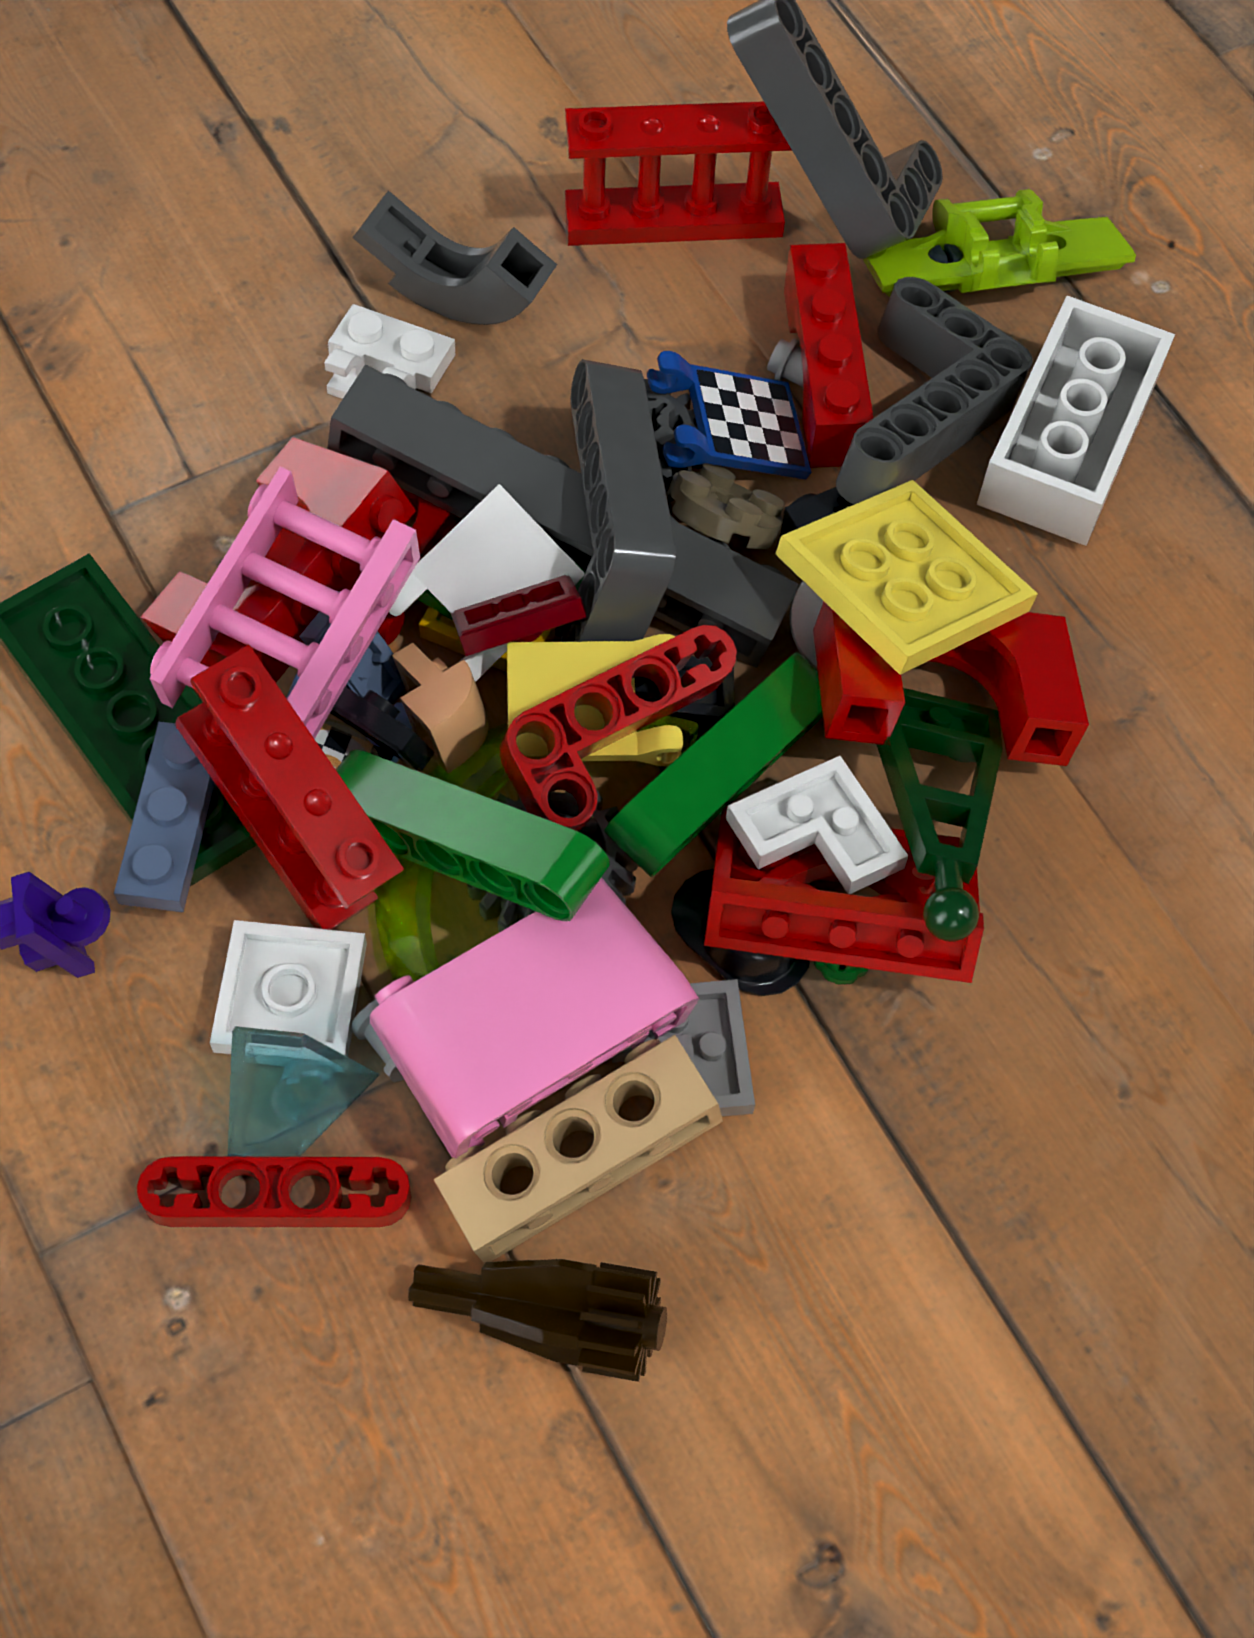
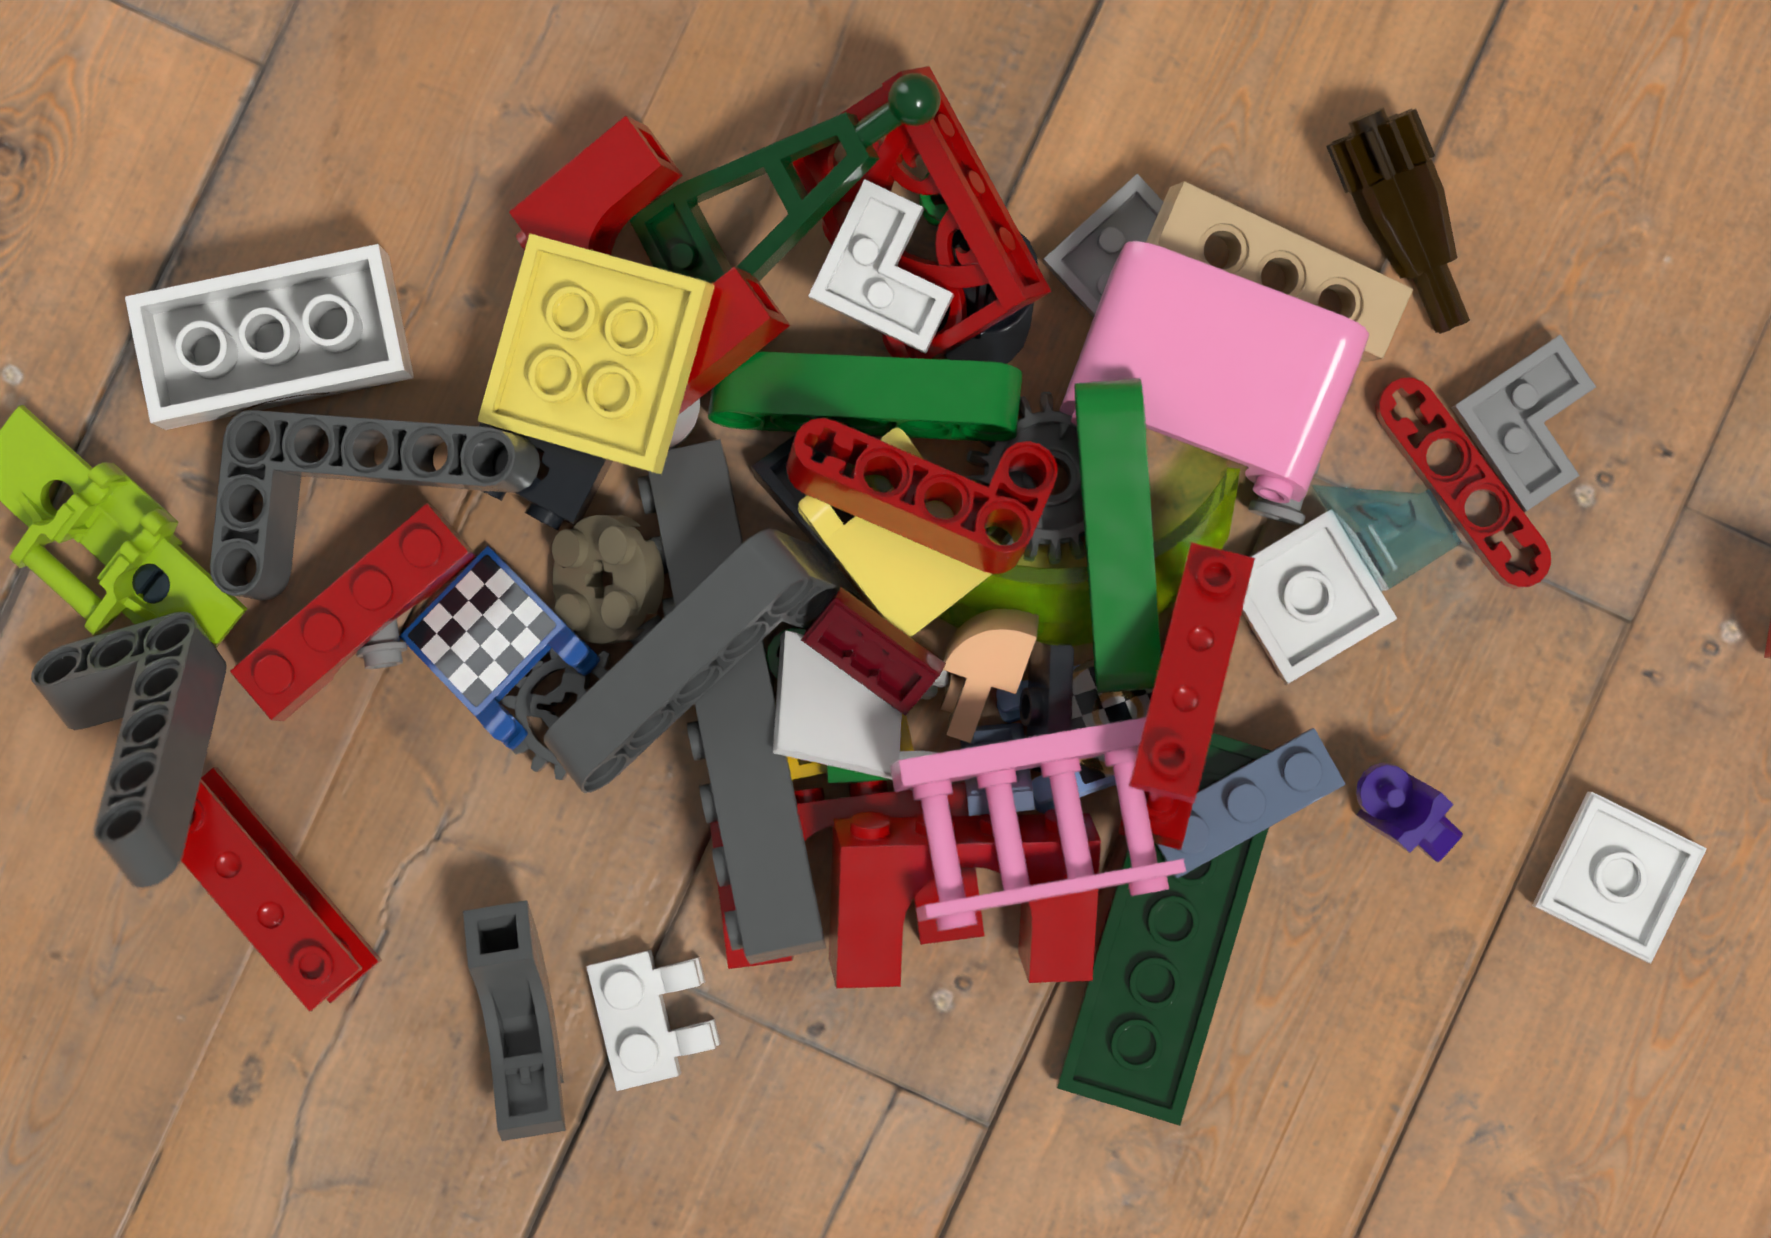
camera: 125 degrees left, 25 degrees up
(297, 1273) = (1510, 417): none -> light grey plate

